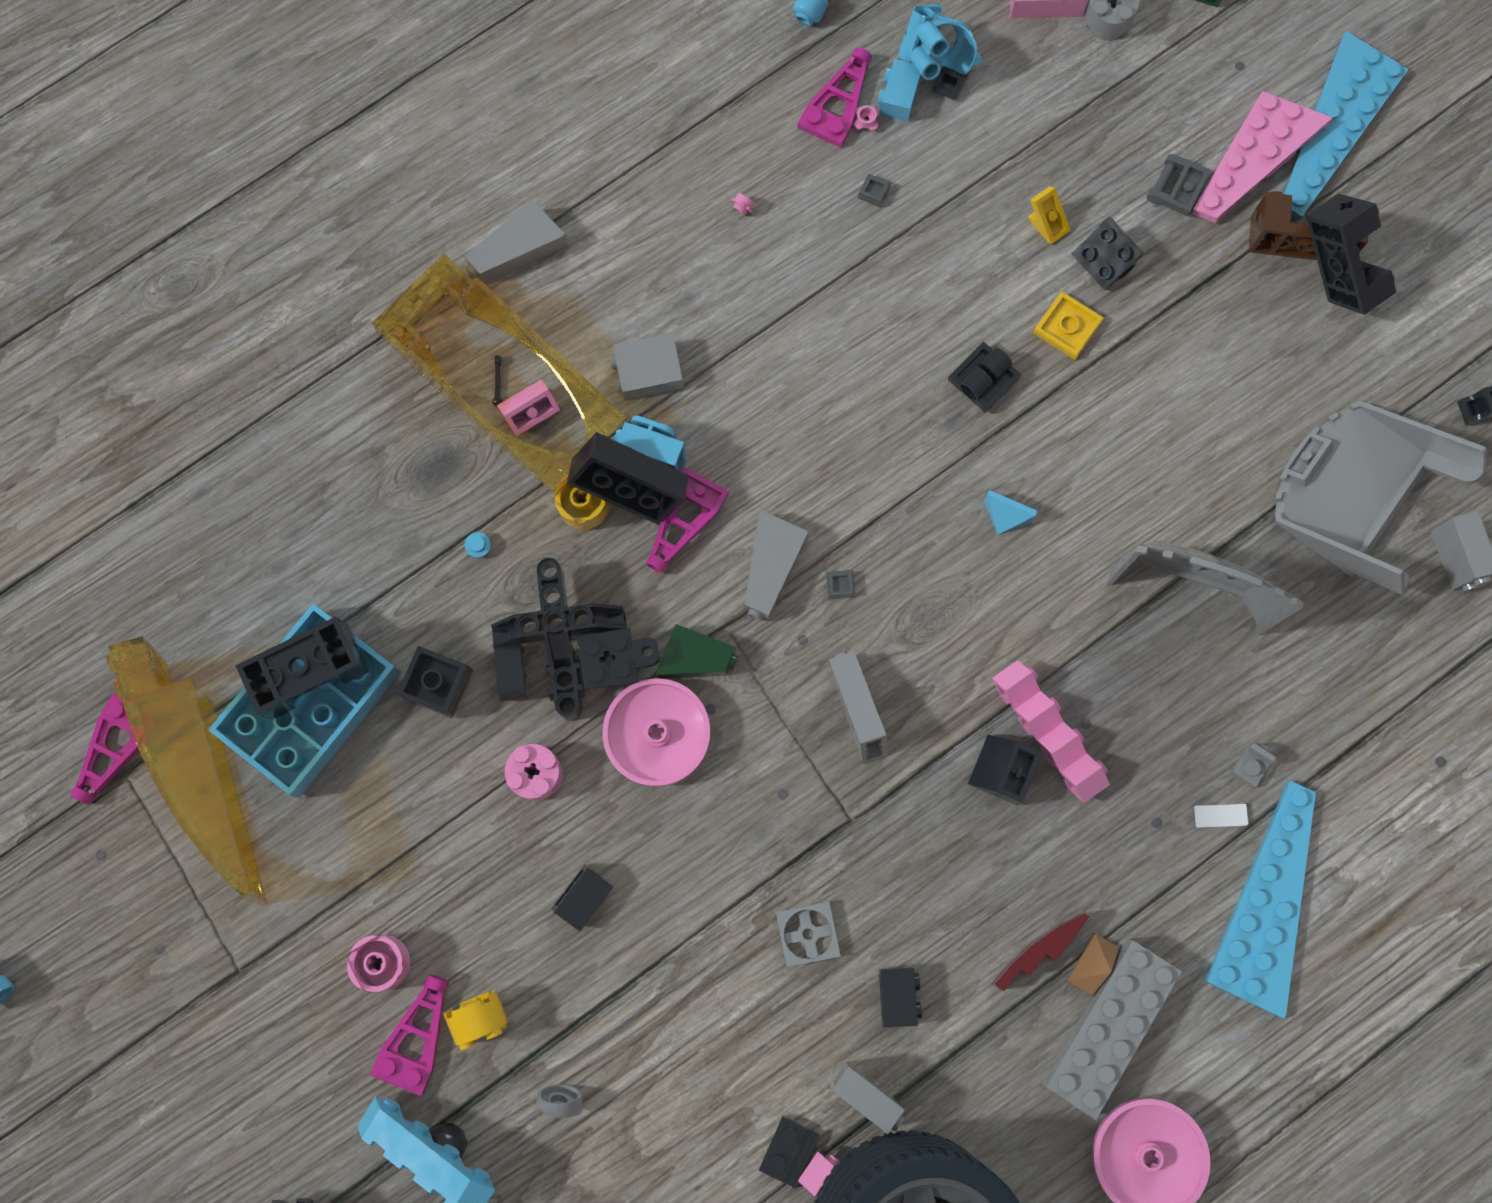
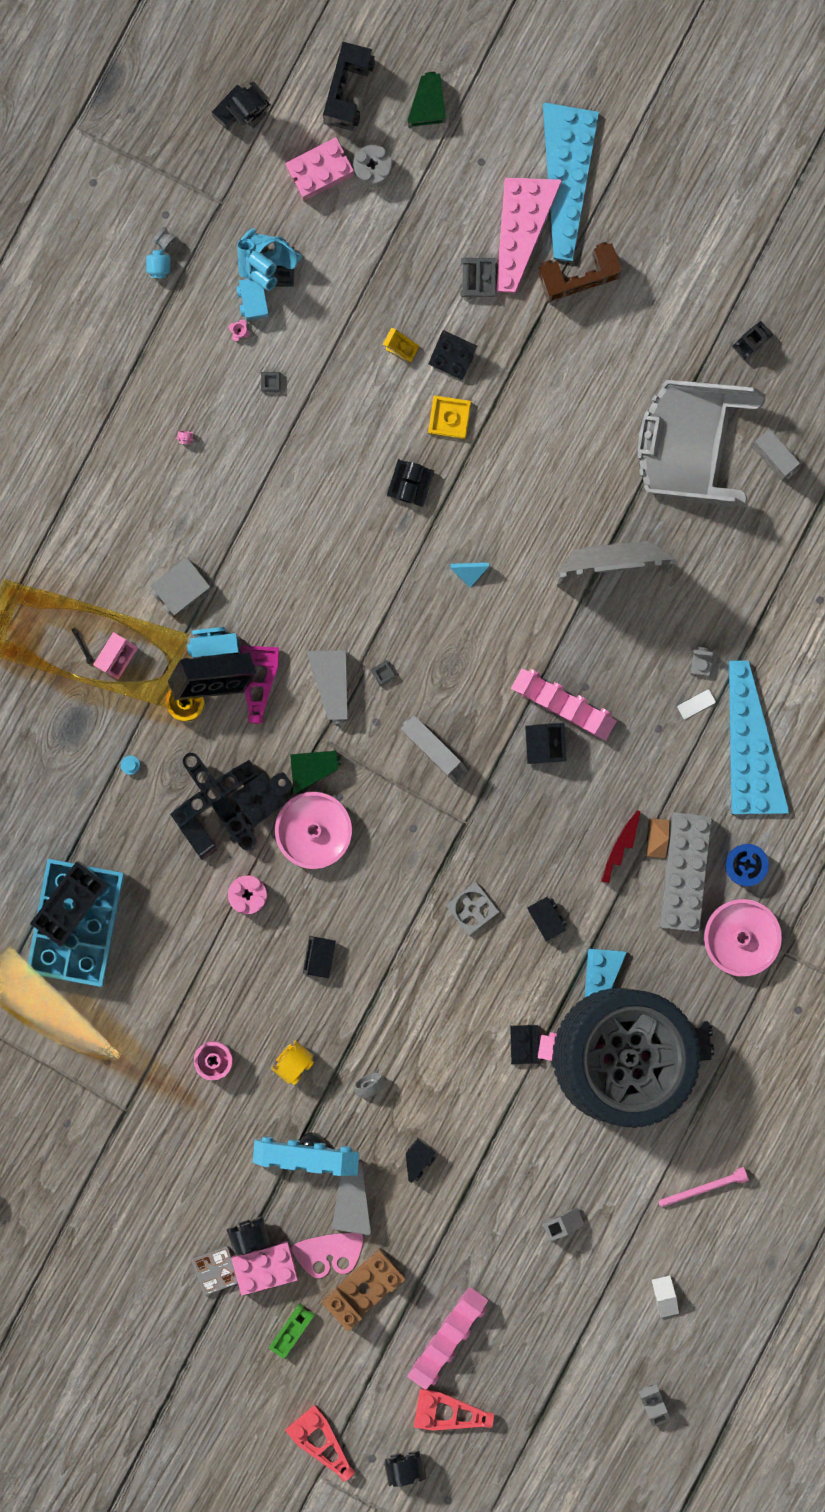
camera: 30 degrees left, 10 degrees up
(402, 1070) = (260, 1117): dark pink plate -> none
(434, 682) = (153, 869): black brick -> none
(515, 244) = (44, 541): light grey slope -> none
(825, 124) = (208, 348): dark pink plate -> none
(868, 1098) = (556, 988): light grey brick -> none
(939, 1103) = (602, 969): none -> medium azure wing
(1186, 1077) = (743, 880): none -> blue wheel
(1335, 234) = (598, 277): black plate -> none

